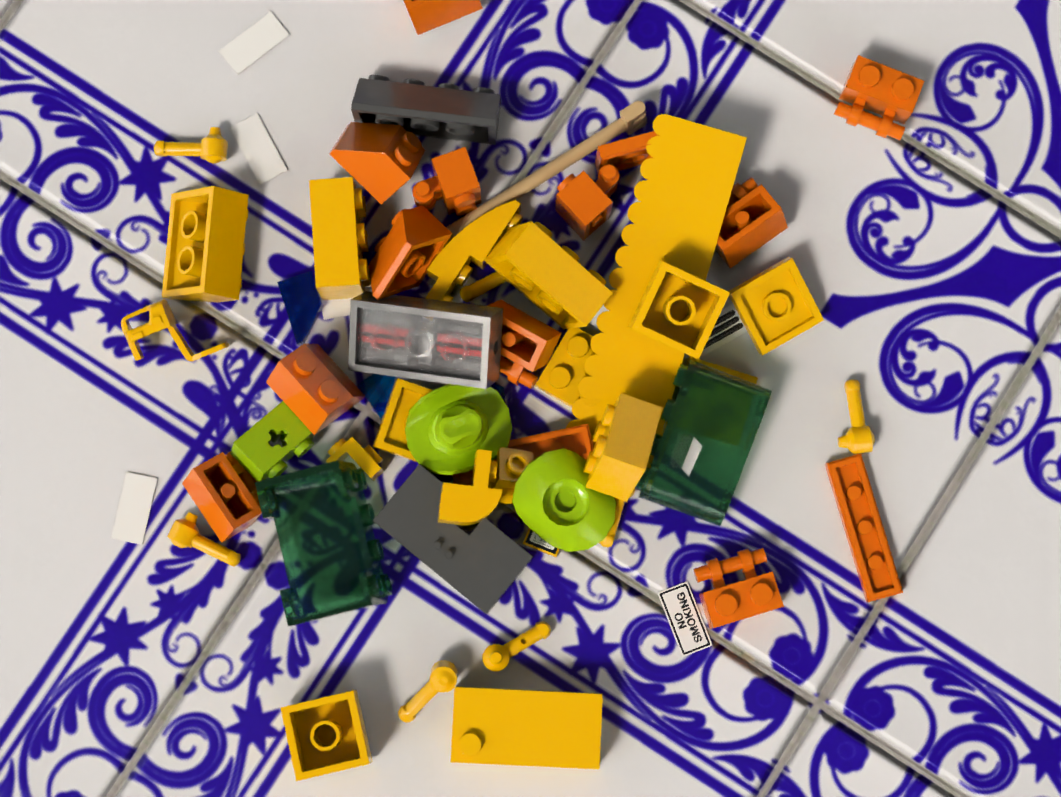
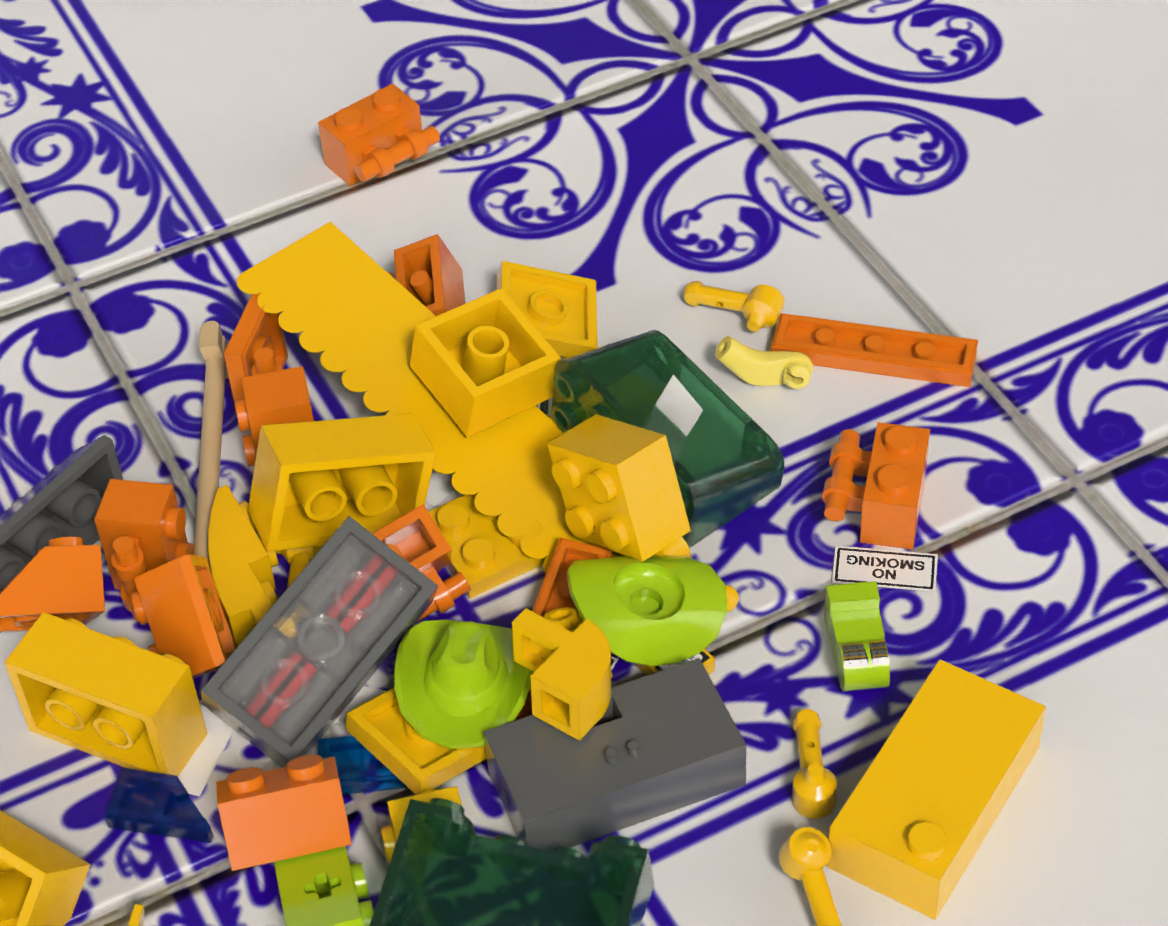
camera: 55 degrees left, 35 degrees down
(611, 633) = (857, 635): none -> lime leg
(807, 467) = (765, 367): none -> light yellow arm

